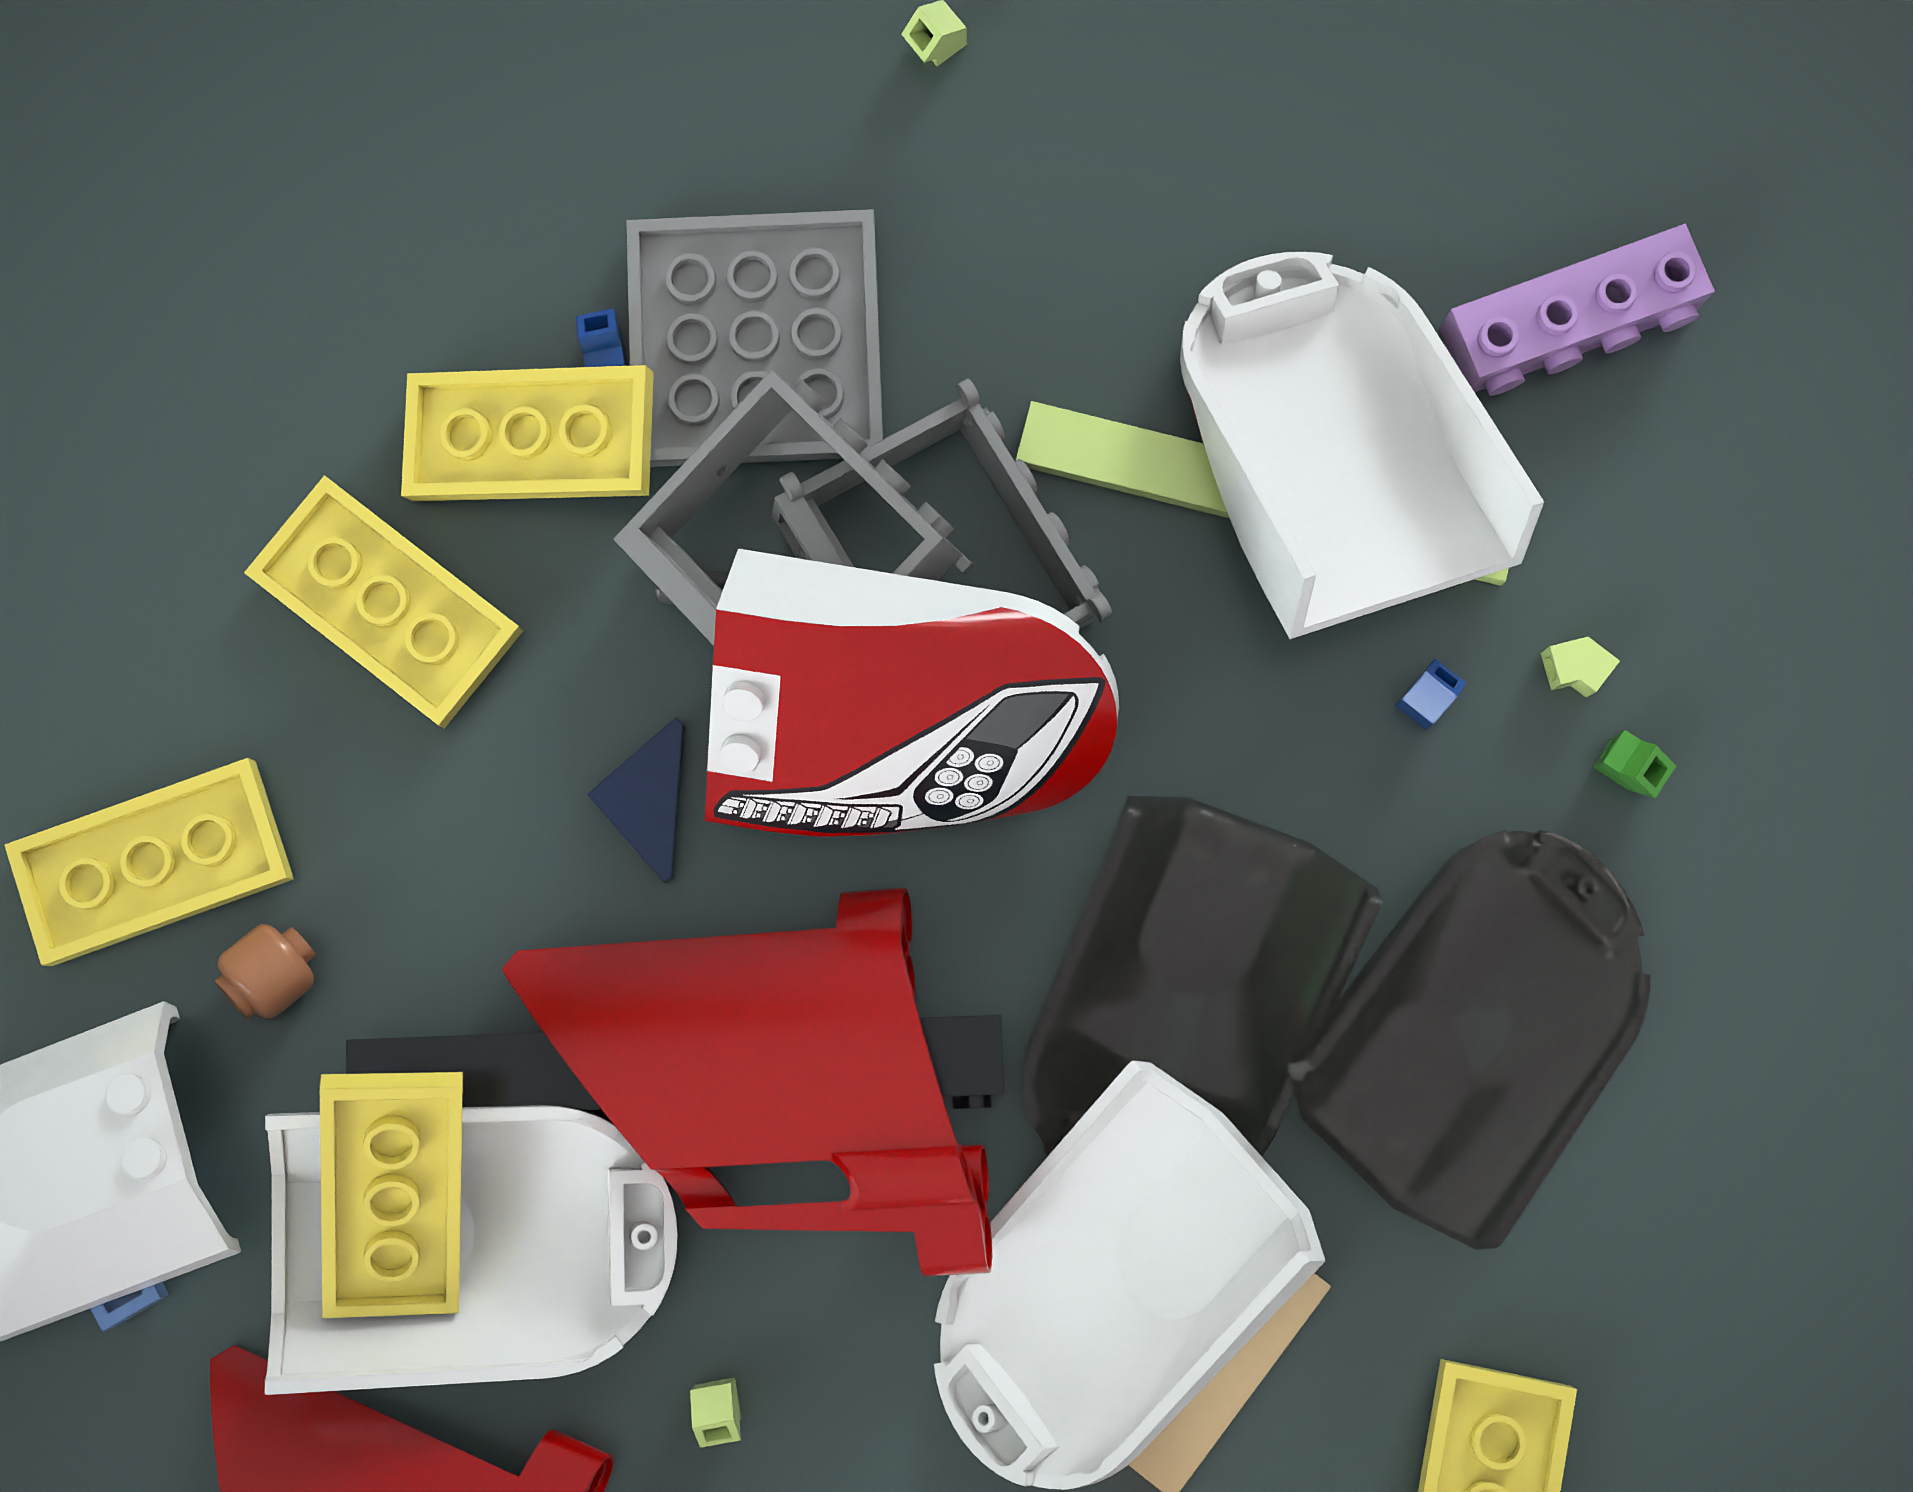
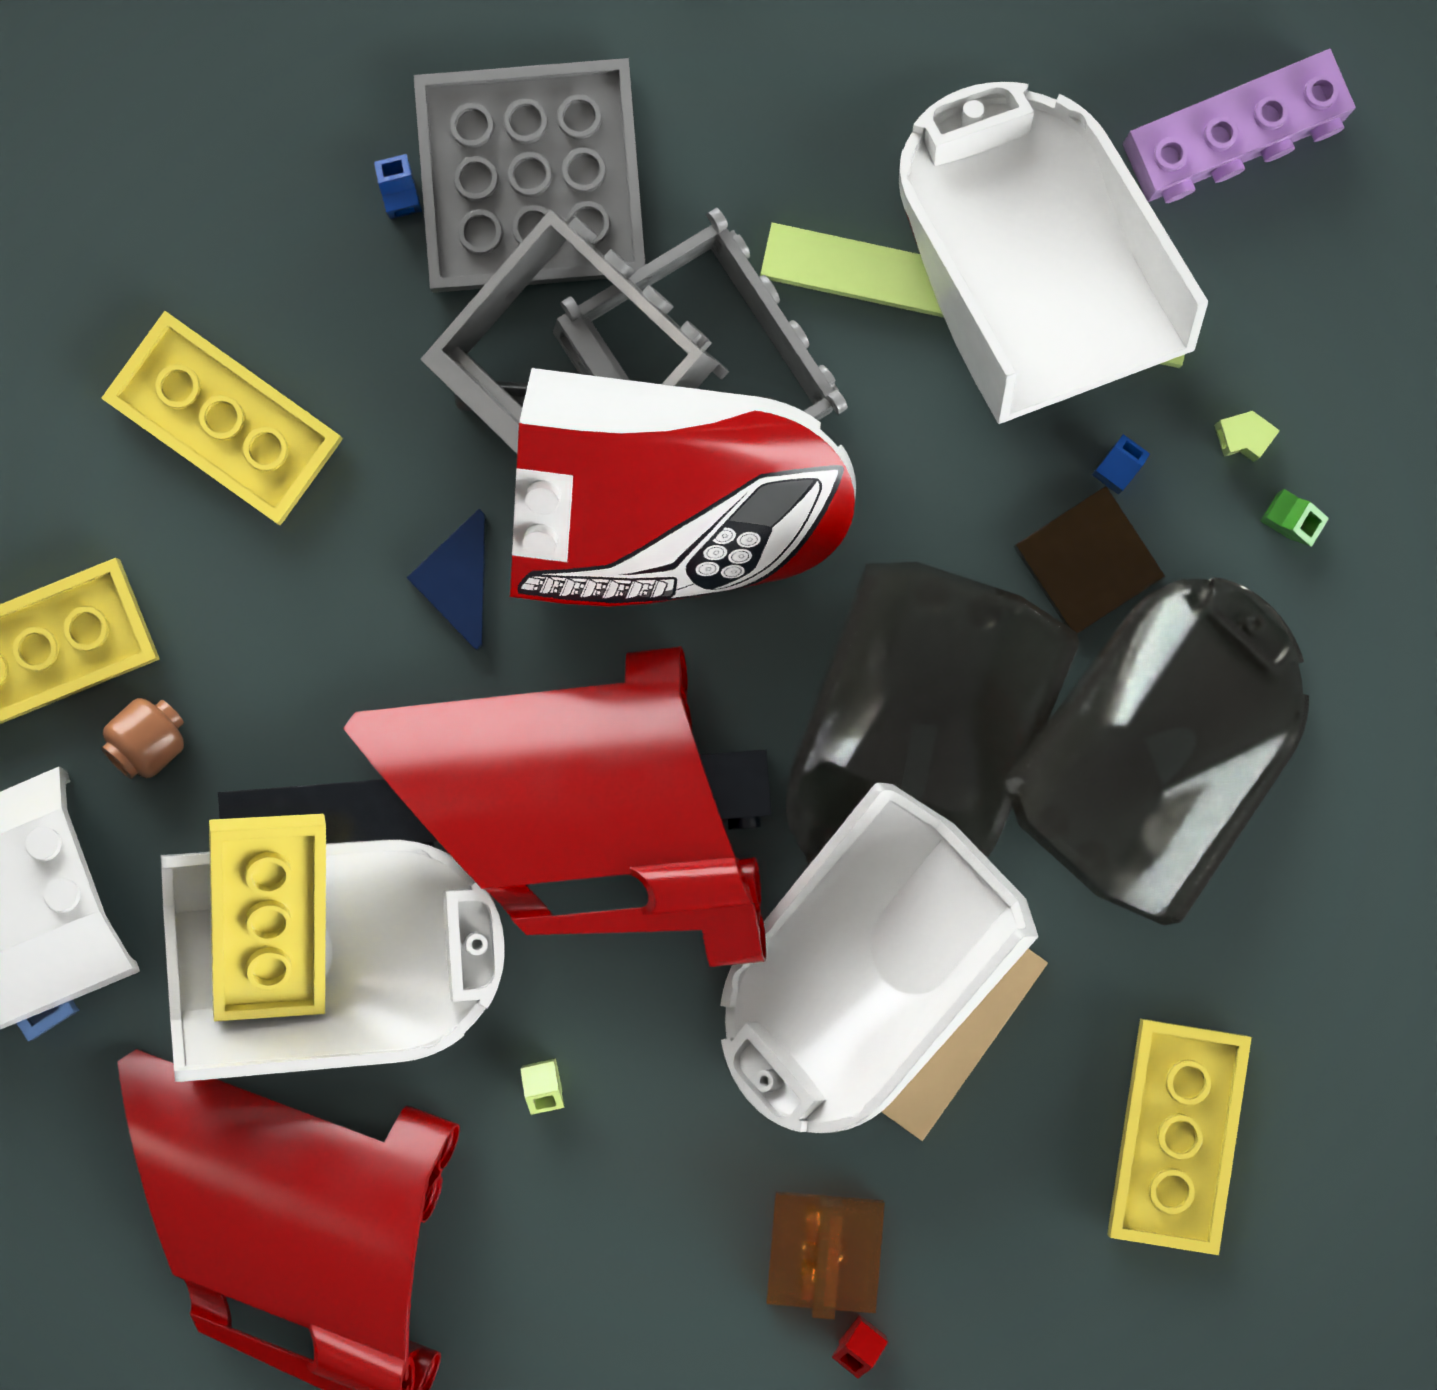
camera: 10 degrees left, 5 degrees up
(528, 433) = (339, 268): light yellow plate -> none
(1391, 805) = (1089, 560): none -> dark brown tile

